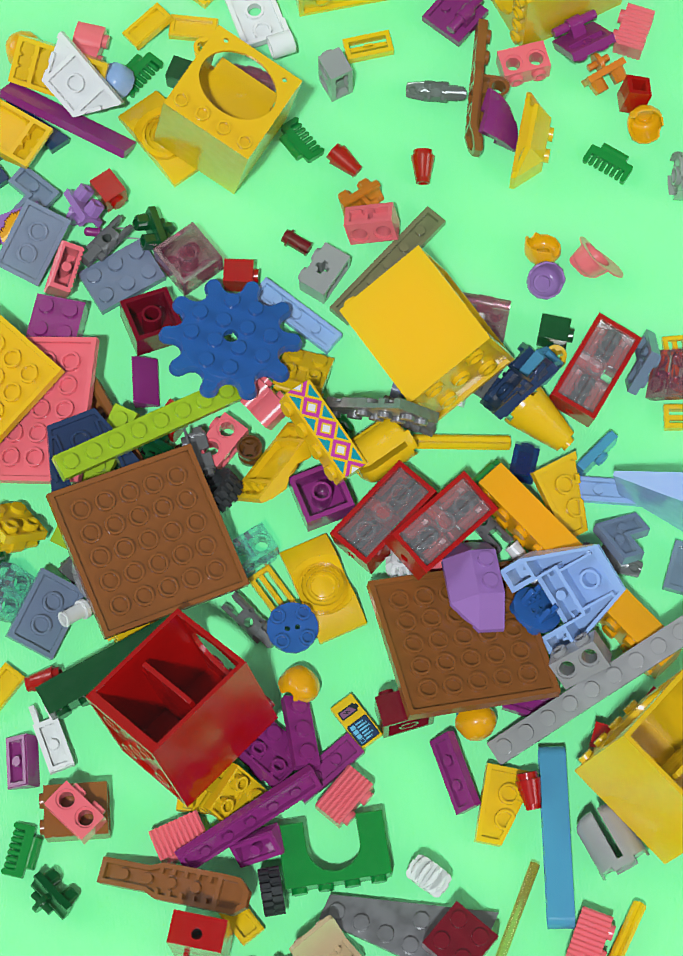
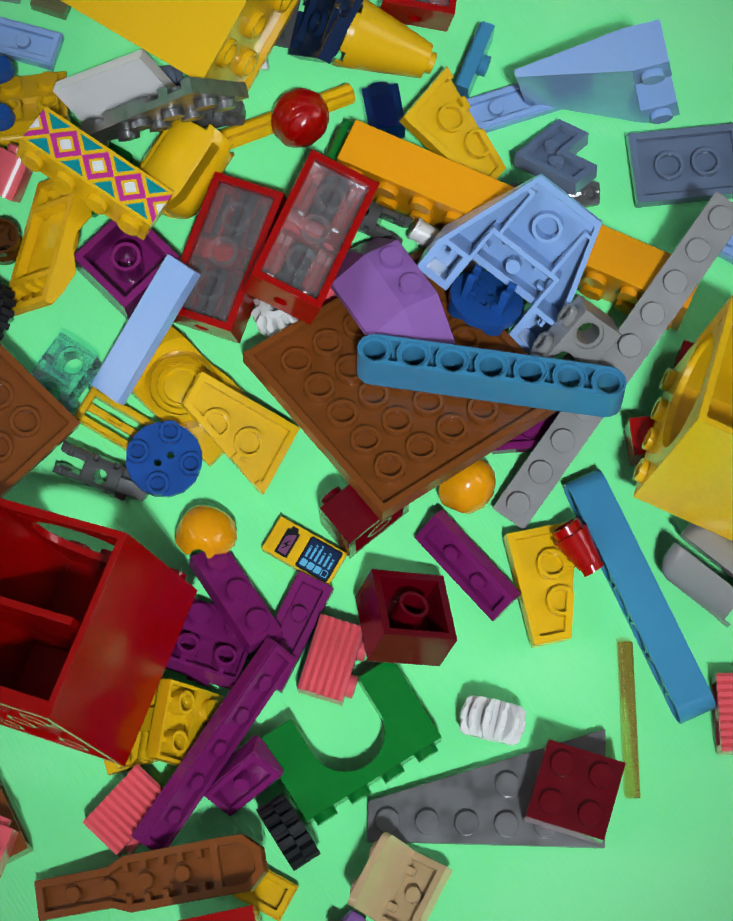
camera: 25 degrees left, 5 degrees up
(314, 542) = (145, 329): none -> light blue tile
(349, 628) = (241, 429): none -> yellow wing
(357, 381) = (111, 85): none -> white tile
(400, 788) = (405, 618): none -> dark red brick
(469, 446) = (300, 118): none -> red piece
(528, 659) = (508, 379): none -> dark azure beam

